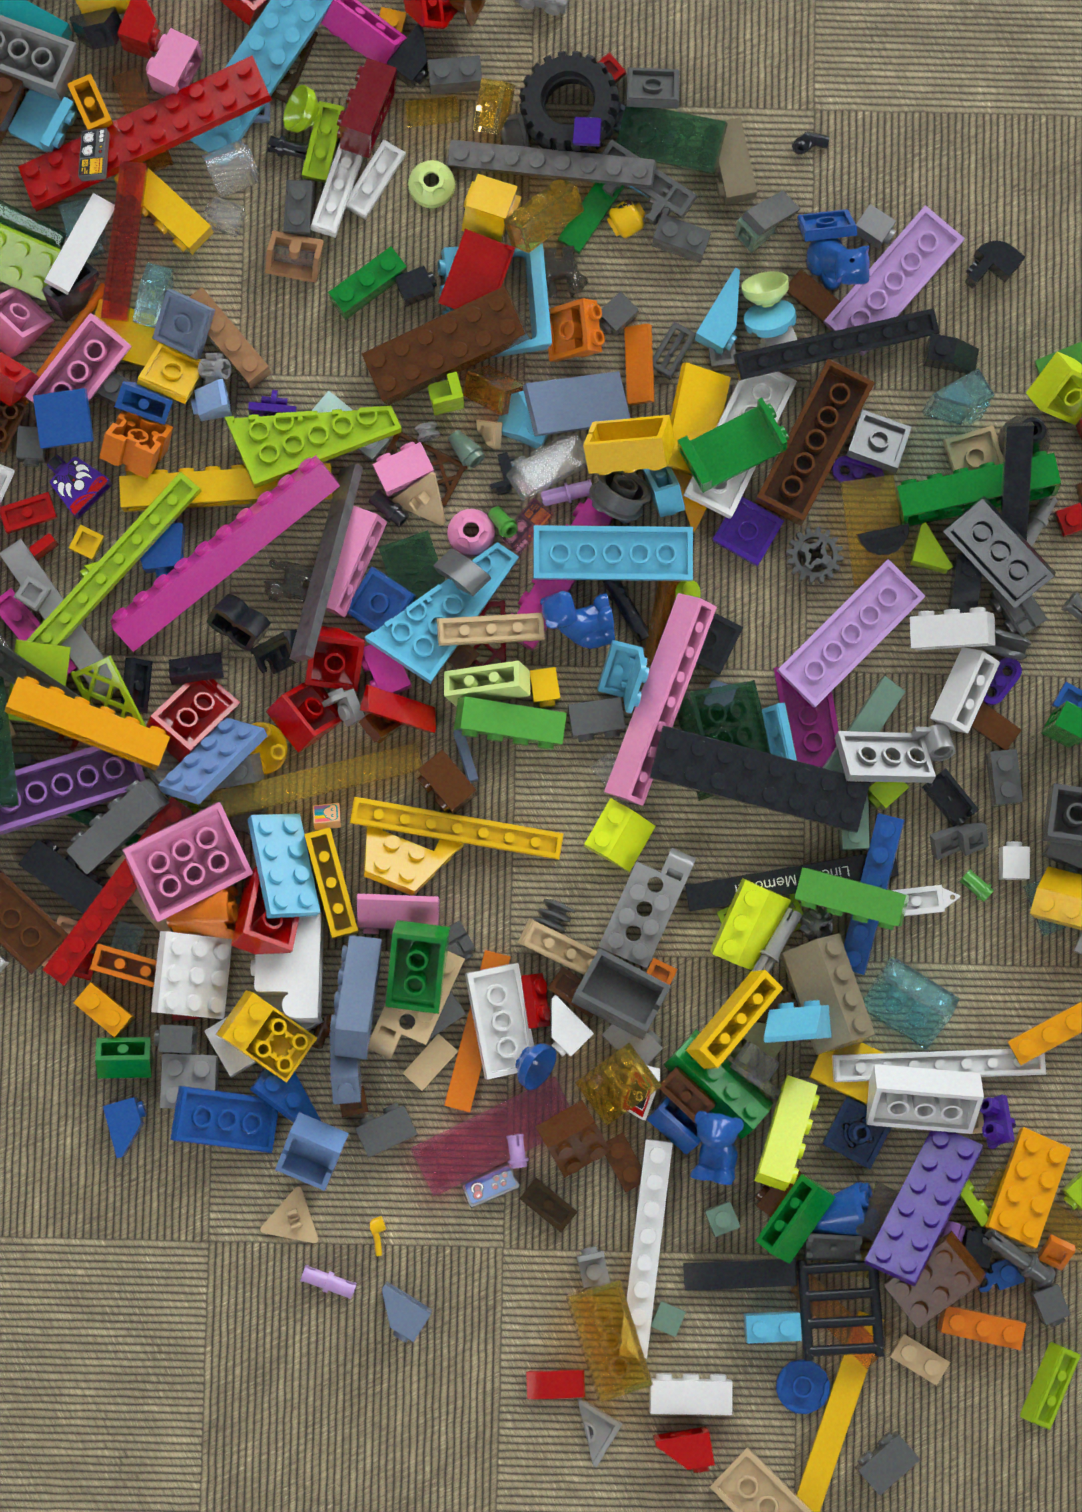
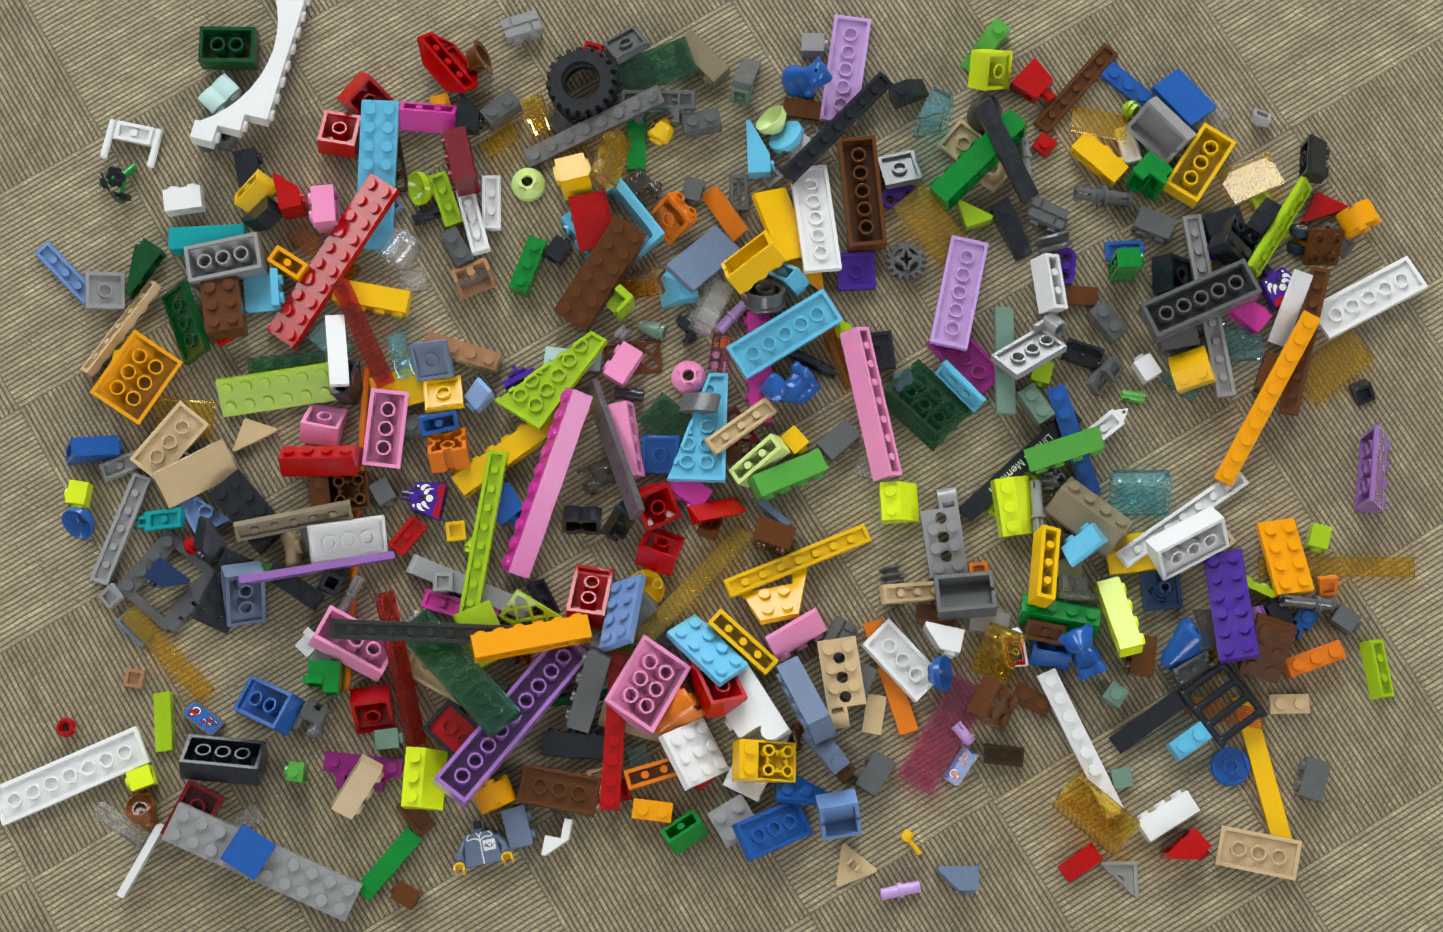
camera: 25 degrees left, 5 degrees down
(43, 546) = (430, 550): red tile -> none
(63, 418) = (394, 462): blue tile -> none
(93, 154) = (311, 292): tile -> none
(124, 1123) = (710, 872): blue slope -> none
(176, 1039) = (709, 799): dark grey brick -> none
(196, 668) = (573, 565): black plate -> none
(214, 367) = (467, 374): light grey gear -> none
(326, 816) = (712, 604): light nougat tile -> none
(347, 704) = (682, 528): light grey bracket -> none
(417, 966) = (831, 657): green slope -> none
(423, 499) = (646, 375): tan piece -> none
(491, 432) = (661, 309): tan tile -> none
(506, 526) = (704, 358): bright green pin -> none
(535, 1000) = (914, 635): red plate -> none
(587, 131) = (605, 92): dark purple tile -> none
(592, 1267) = (1055, 776): light grey bracket -> none
(624, 673) = (839, 402): medium azure bracket -> none
(734, 446) = (816, 224): green panel -> none
(759, 779) = (962, 413): black plate -> none
(795, 1218) = (1159, 664): green brick -> none
(809, 140) = (740, 18): black arm -> none
(826, 225) = (784, 61): blue tile -> none
(884, 540) = (942, 225): black plate -> none
(952, 629) = (1018, 252): white brick -> none
(997, 1121) = (1240, 529): dark purple hips -> none
(998, 258) = (898, 18): black brick -> none
(999, 552) = (1016, 187): plate -> none

